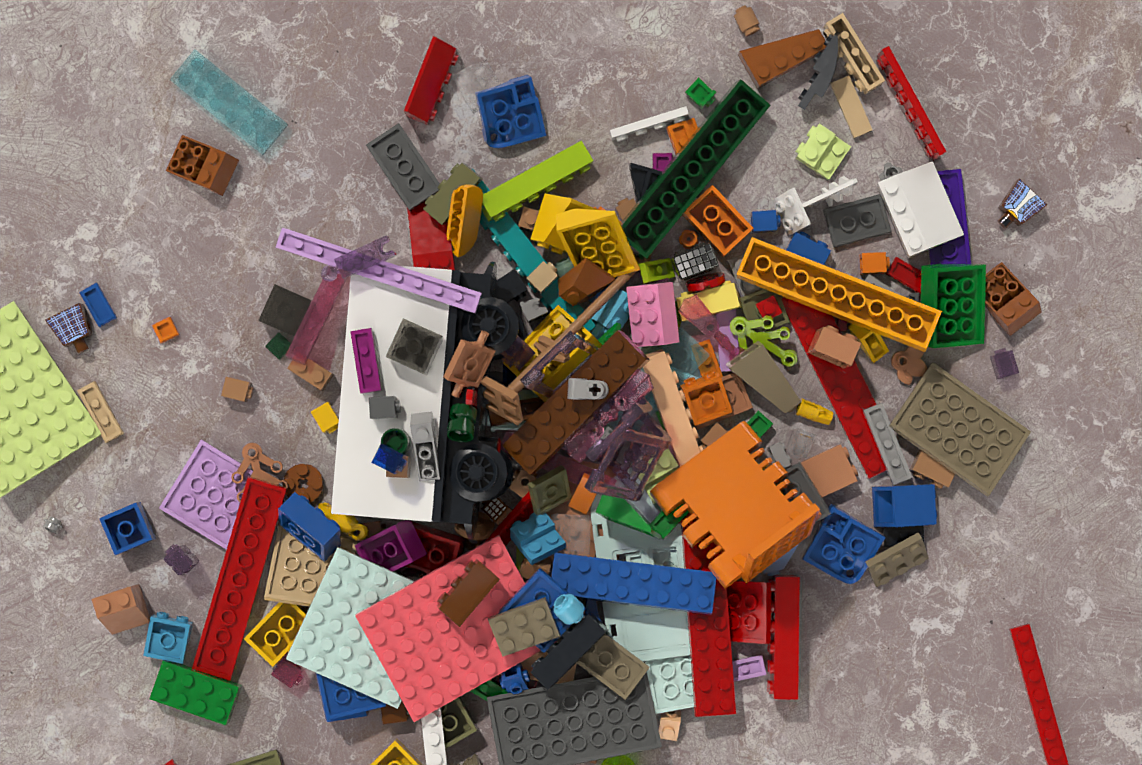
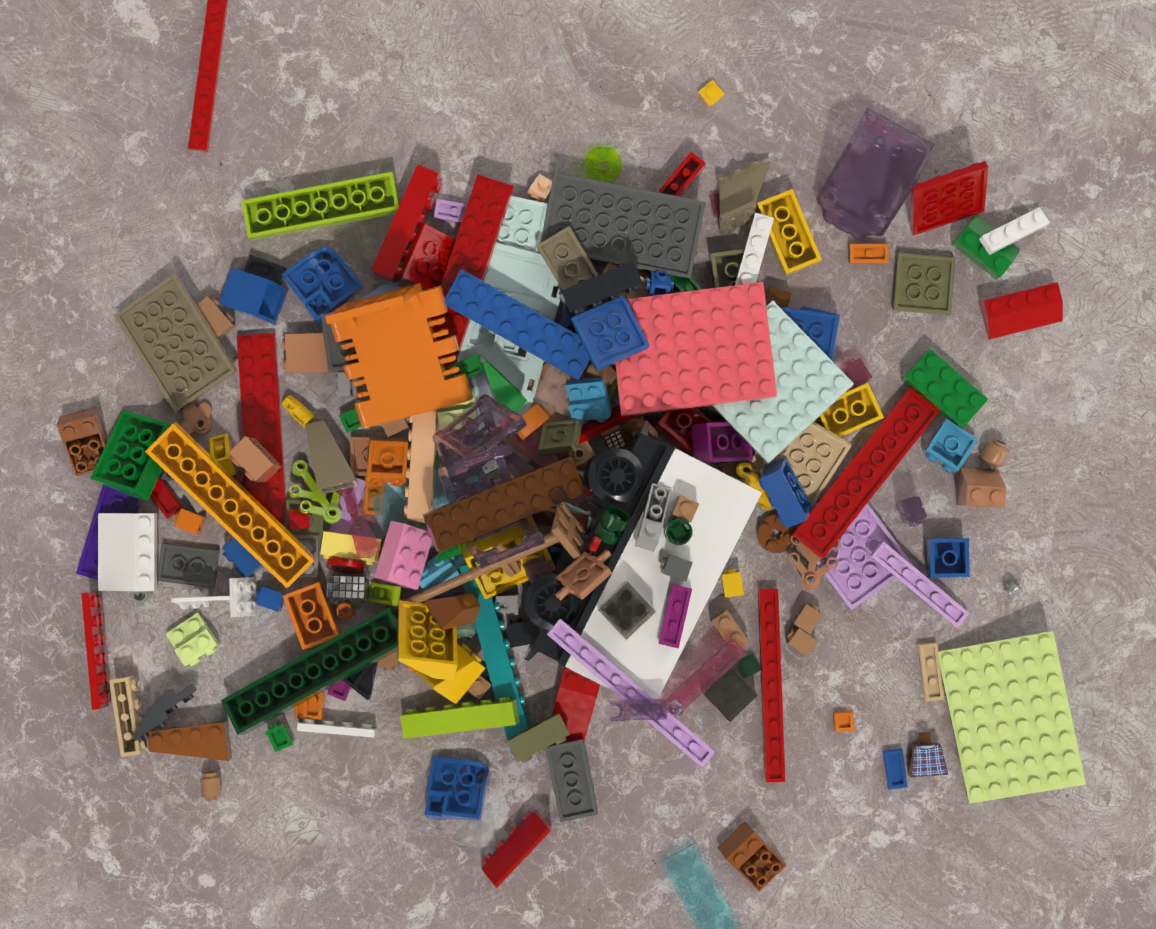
camera: 155 degrees left, 0 degrees up
(121, 649) = (994, 453): none -> medium nougat head
(145, 491) = (919, 584): none -> lavender plate
(240, 414) = (807, 618): none -> medium nougat brick
(248, 336) = (772, 685): none -> red plate
(389, 459) = (689, 517): clear blue brick -> none
(464, 218) = (536, 711): light orange brick -> none
(467, 592) = (669, 375): reddish brown slope -> none
(524, 626) = (631, 325): dark tan plate -> none
(542, 276) = (487, 630): tan brick -> none
(568, 609) = (585, 323): medium azure head -> none
(584, 389) = (491, 512): light grey piece -> none
(632, 392) = (449, 491): clear pink piece -> none
(851, 106) = (150, 669): tan tile -> none
(875, 620) = (320, 206): none -> lime brick
(887, 444) = (245, 355): light grey plate -> none
(897, 560) = (279, 250): dark tan plate -> none
(1004, 363) = (112, 384): clear purple brick -> none
(1019, 205) = (37, 519): torso -> none

